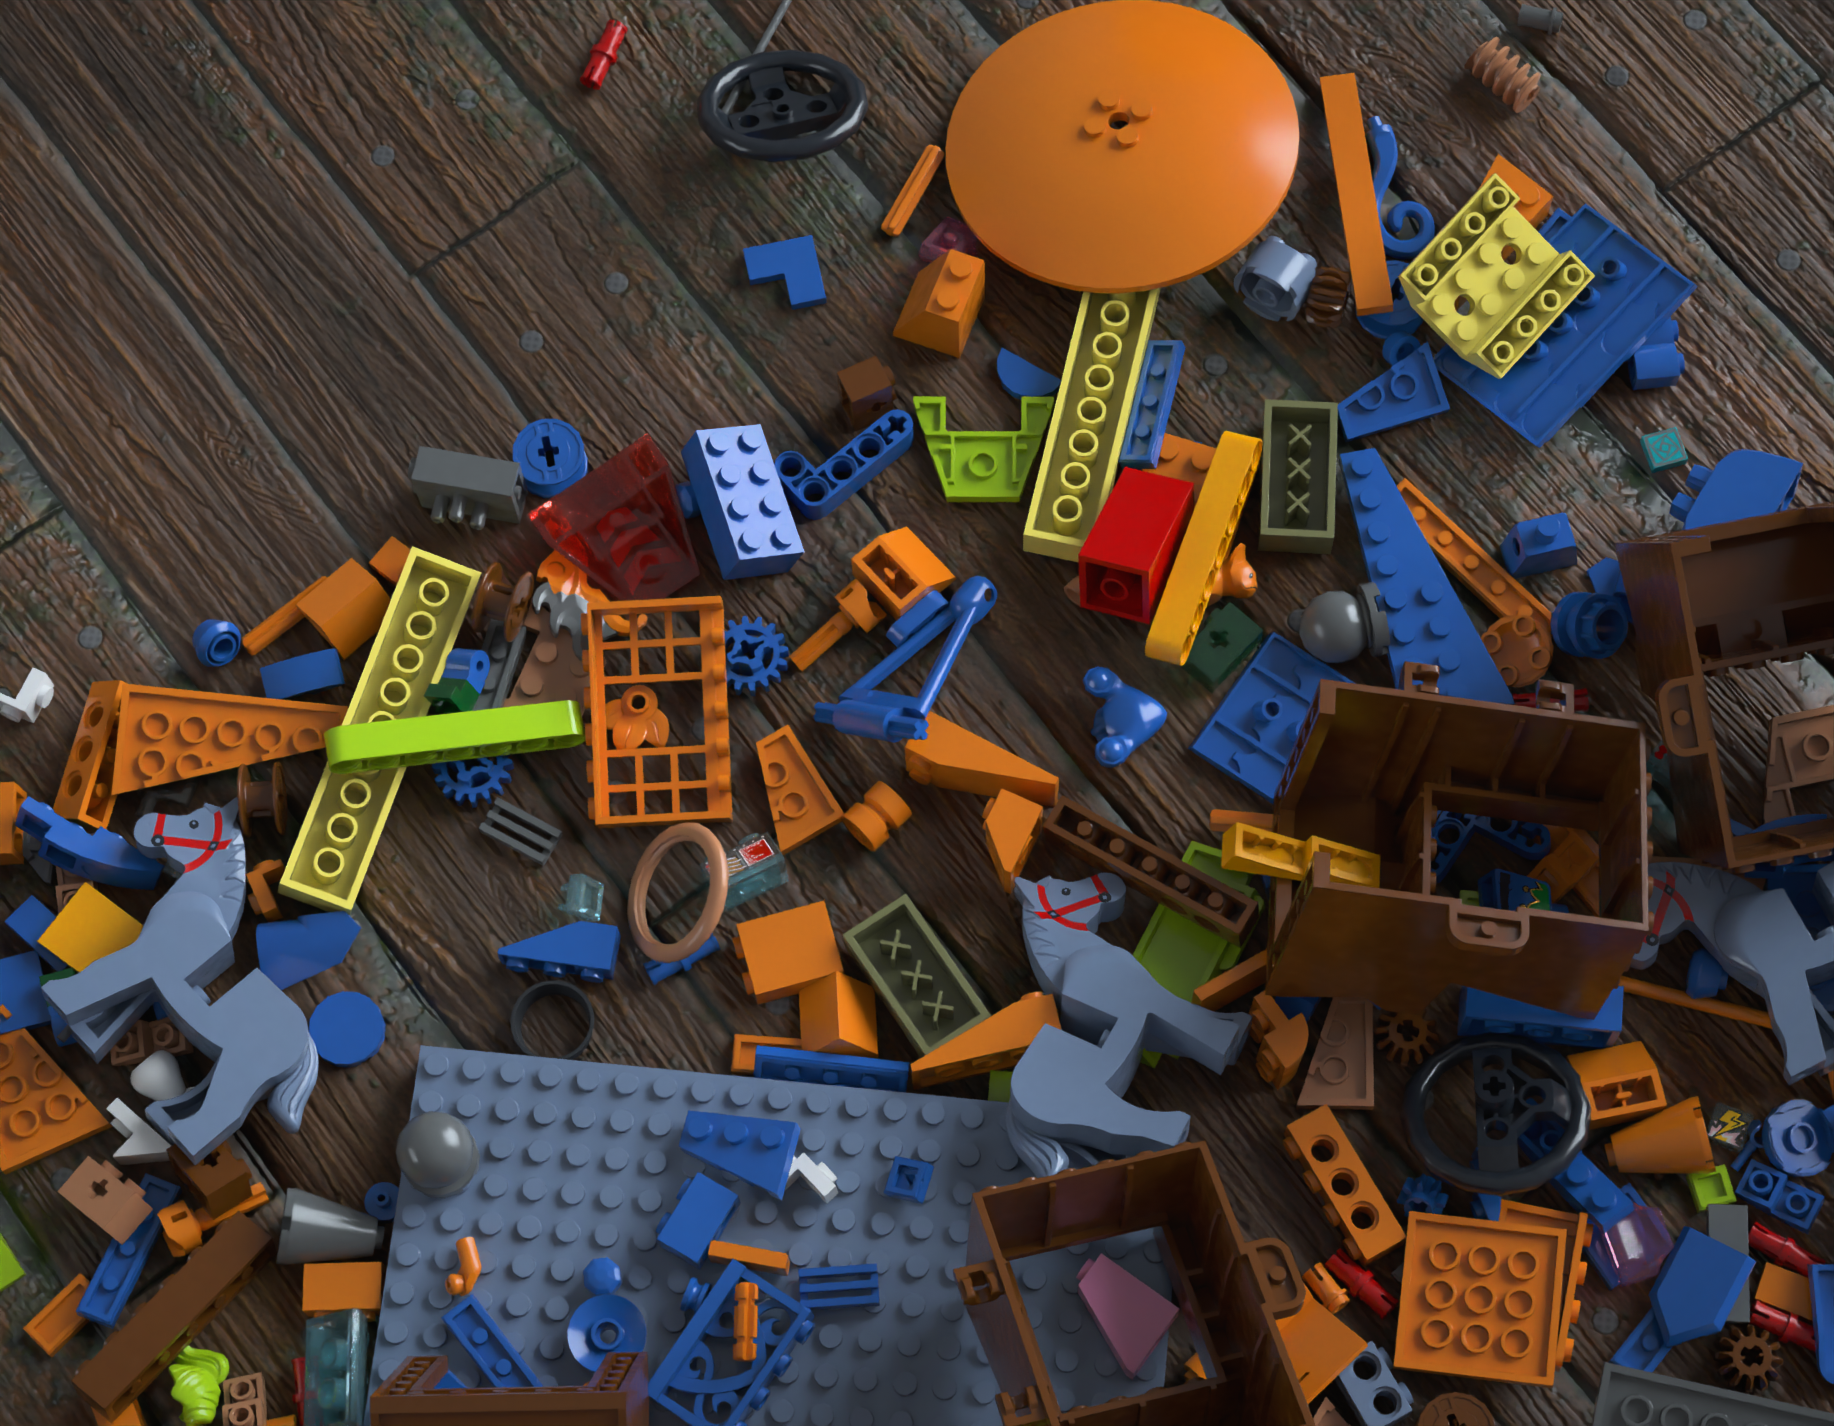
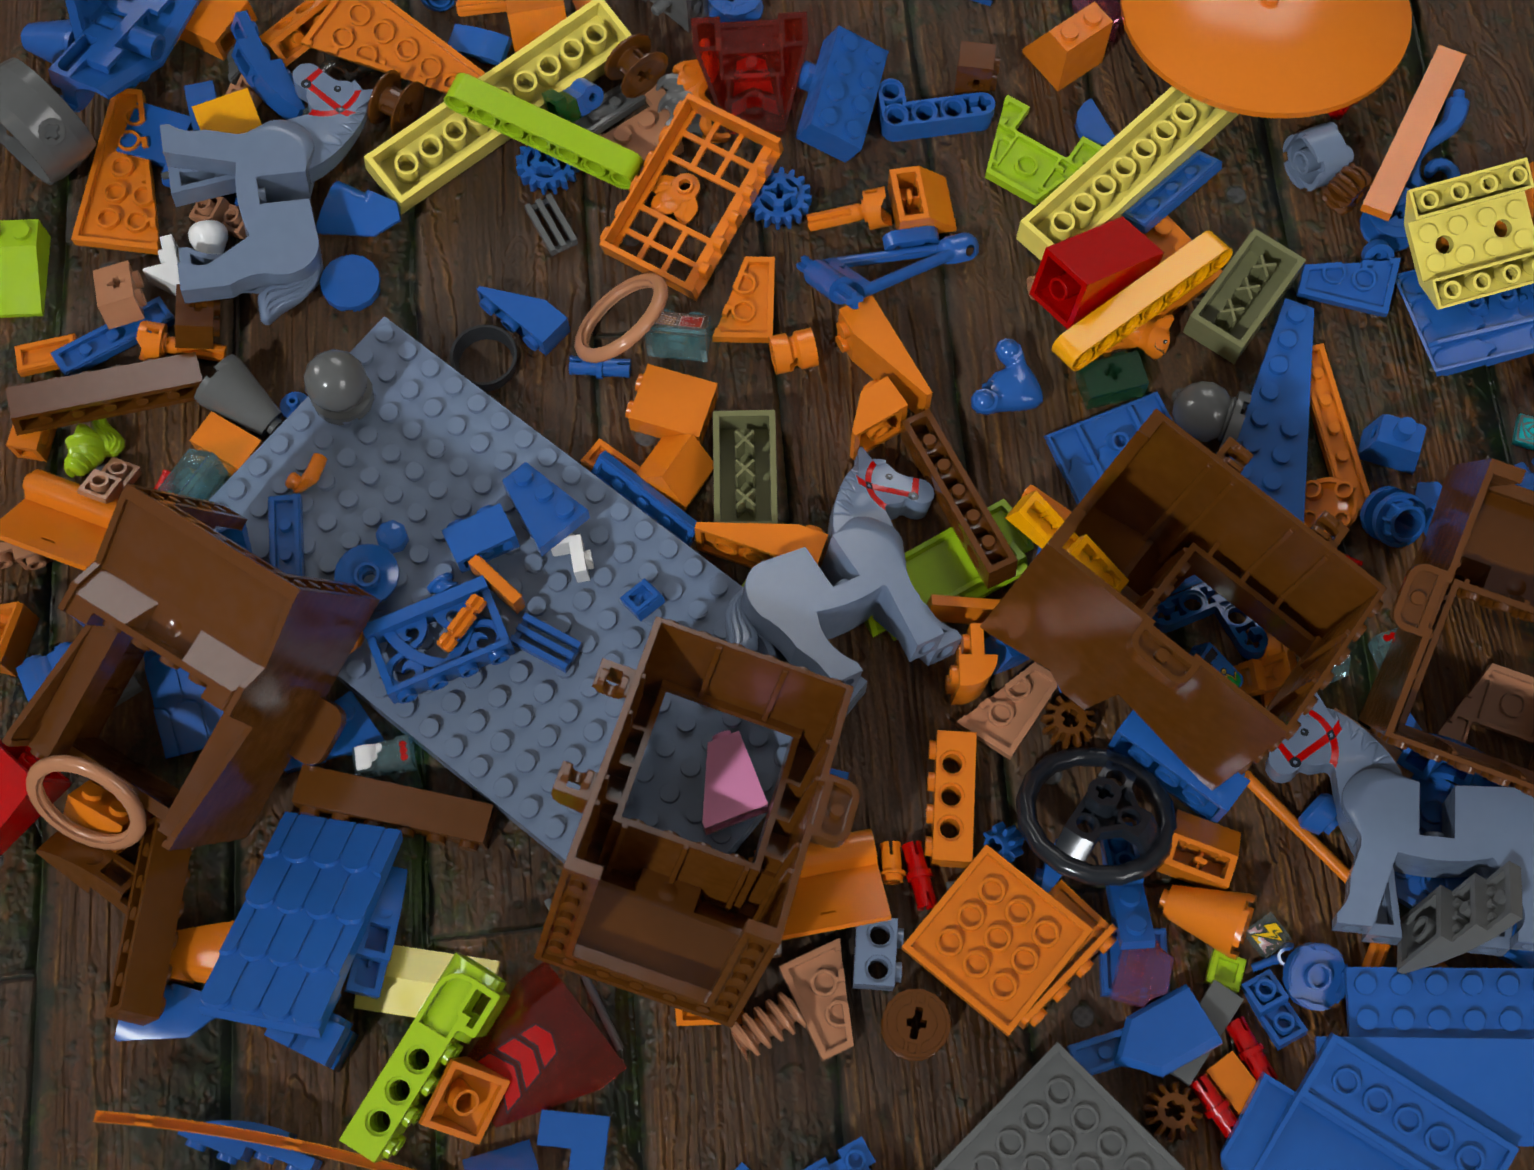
camera: 30 degrees right, 0 degrees up
(262, 897) = (354, 166): orange bracket -> none
(583, 897) = (561, 289): clear light blue tile -> none

